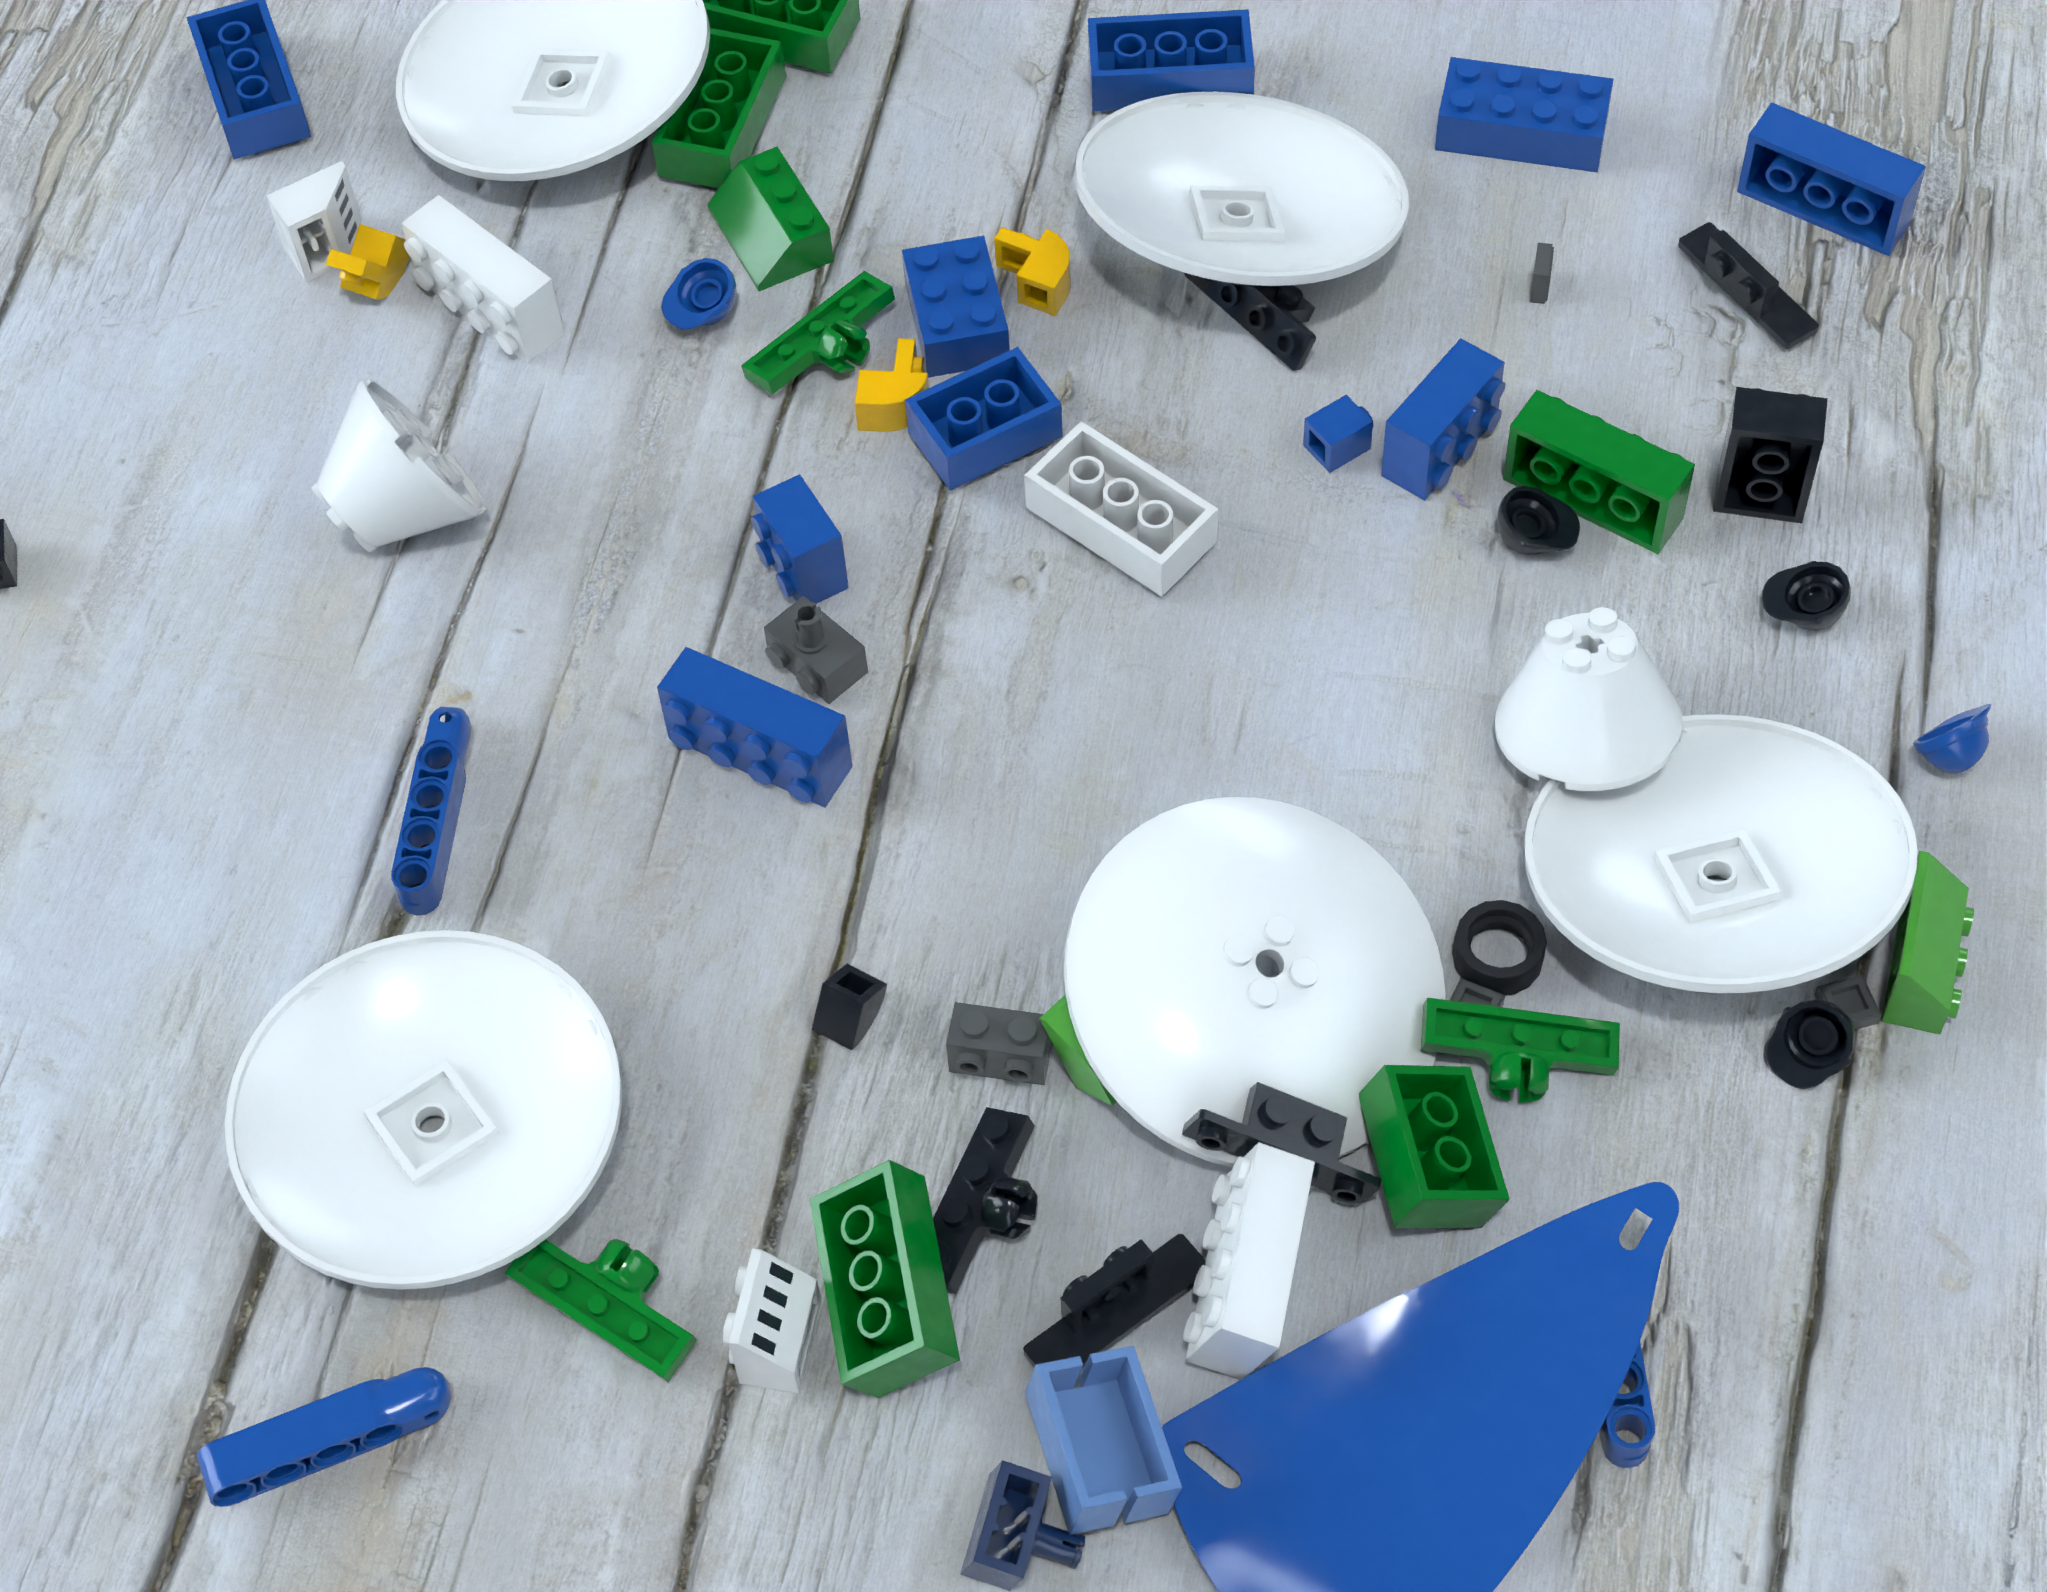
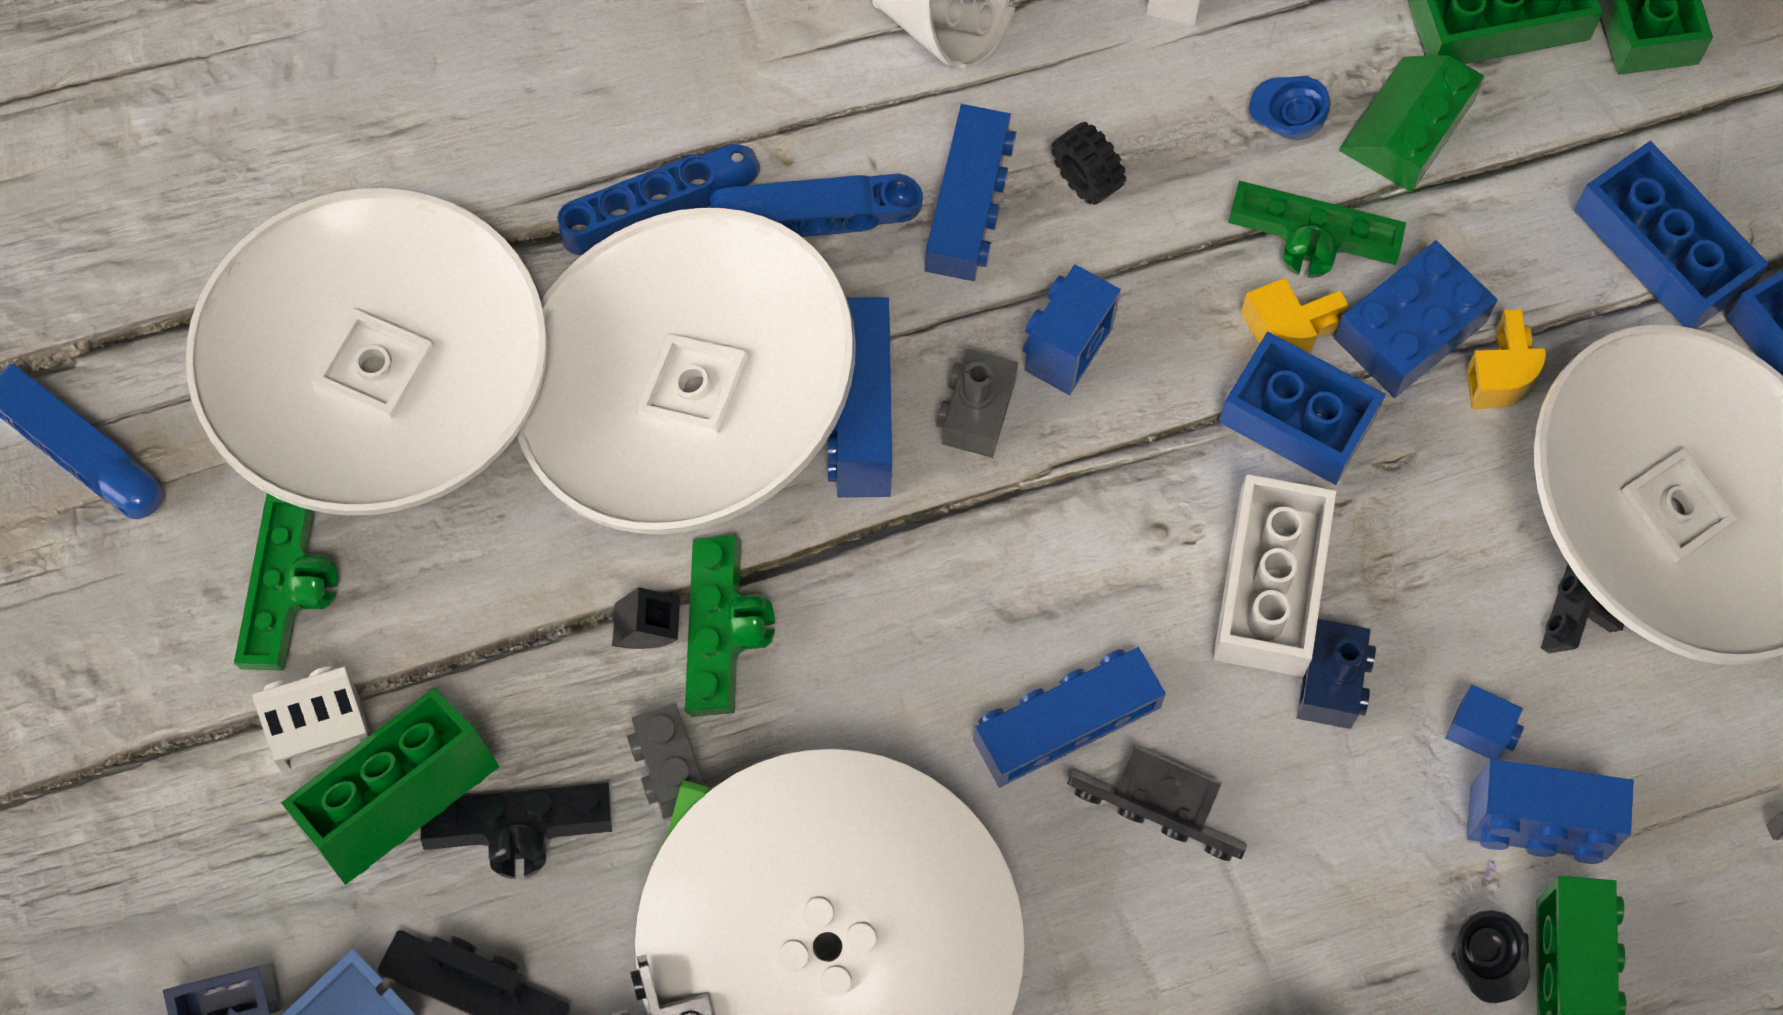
camera: 55 degrees right, 10 degrees up
(532, 691) = (828, 204): none -> blue piece
(608, 565) = (968, 193): none -> blue brick
(623, 771) = (673, 303): none -> white dish
(649, 458) = (1088, 163): none -> black tyre
(891, 947) = (720, 625): none -> green plate
(1004, 104) = (1670, 236): none -> blue brick
(1149, 720) = (1067, 716): none -> blue brick
(1245, 516) = (1334, 679): none -> dark blue brick
(1262, 679) = (1166, 795): none -> black bracket

